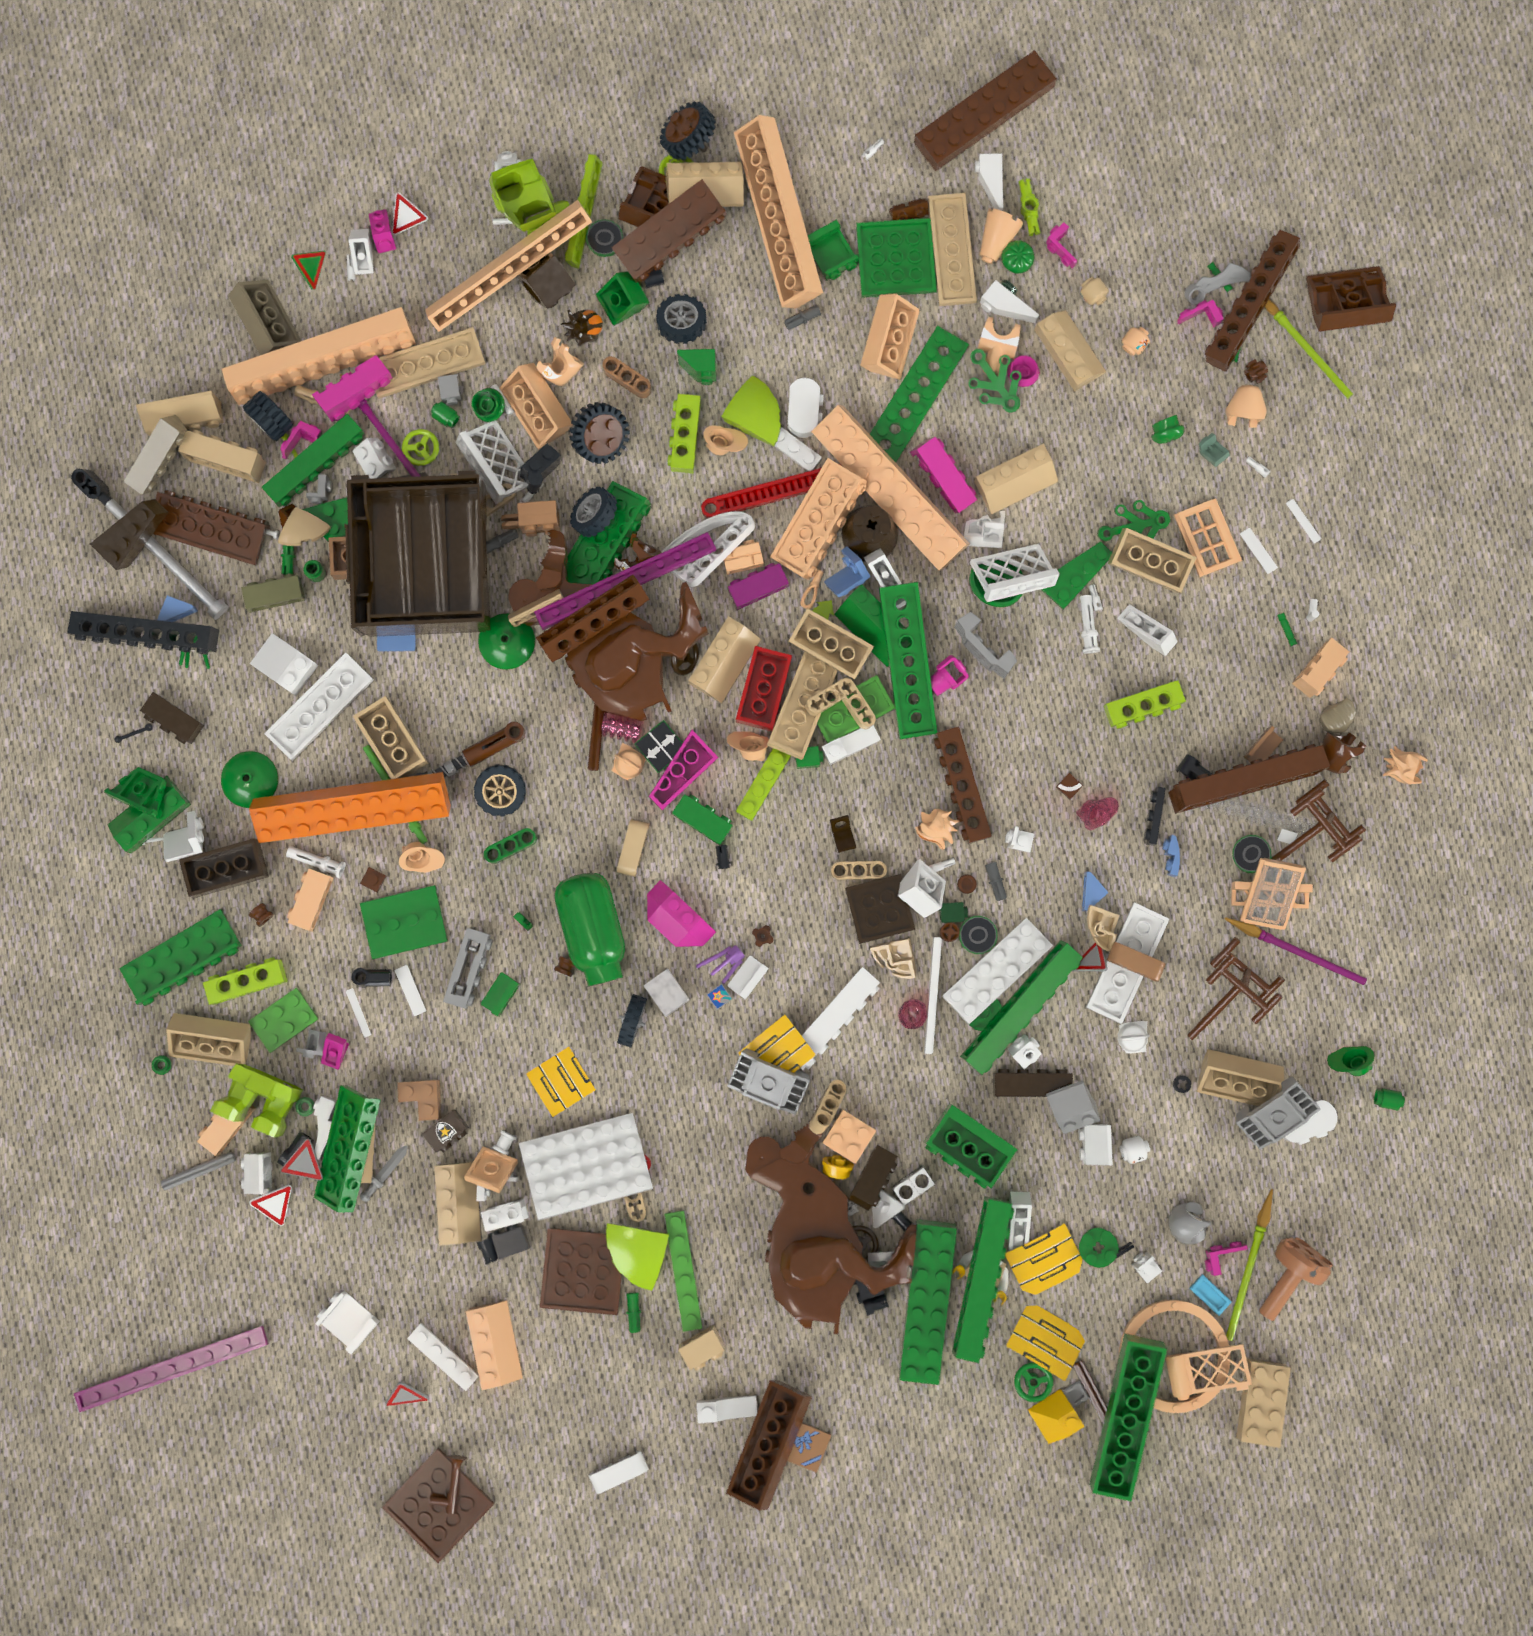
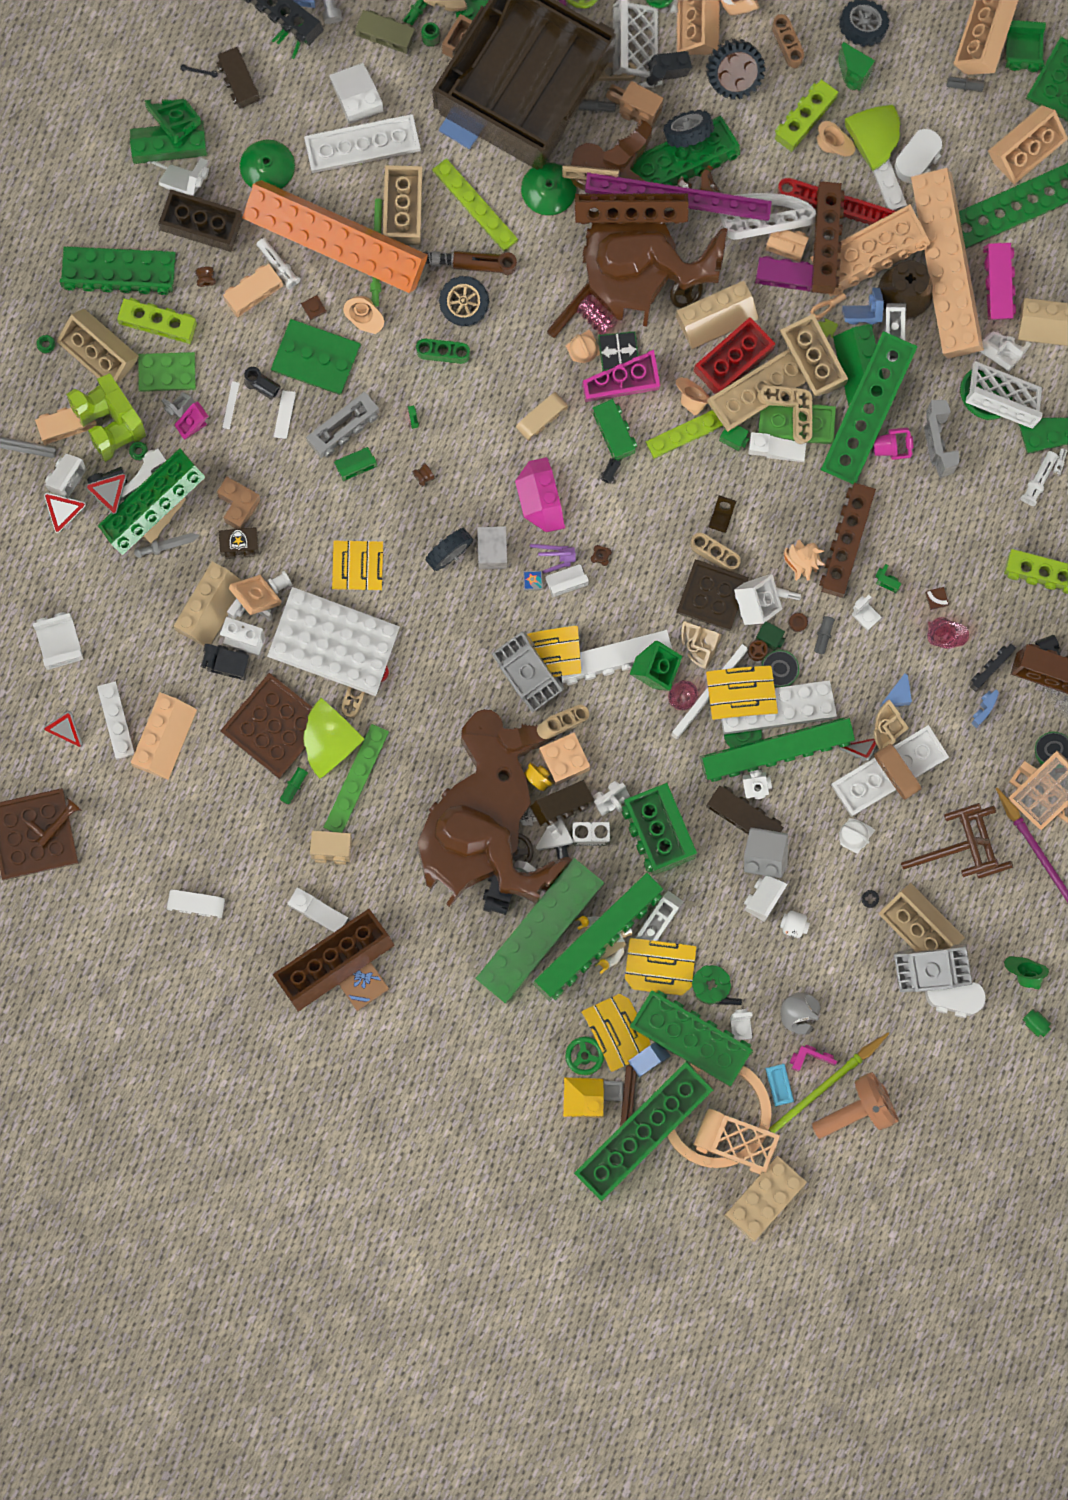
camera: 30 degrees right, 5 degrees down
(452, 697) = (475, 204): none -> lime plate
(591, 927) = (465, 454): green piece -> none
(754, 489) = (821, 282): none -> reddish brown brick
(875, 1005) = (656, 666): none -> green slope
(912, 1145) = (612, 799): none -> white hips
(961, 979) = (741, 692): none -> yellow sticker
(1021, 799) = (888, 582): none -> green bracket
(1089, 1346) = (648, 1059): none -> medium blue slope
(1114, 1307) = (691, 1037): none -> green bracket

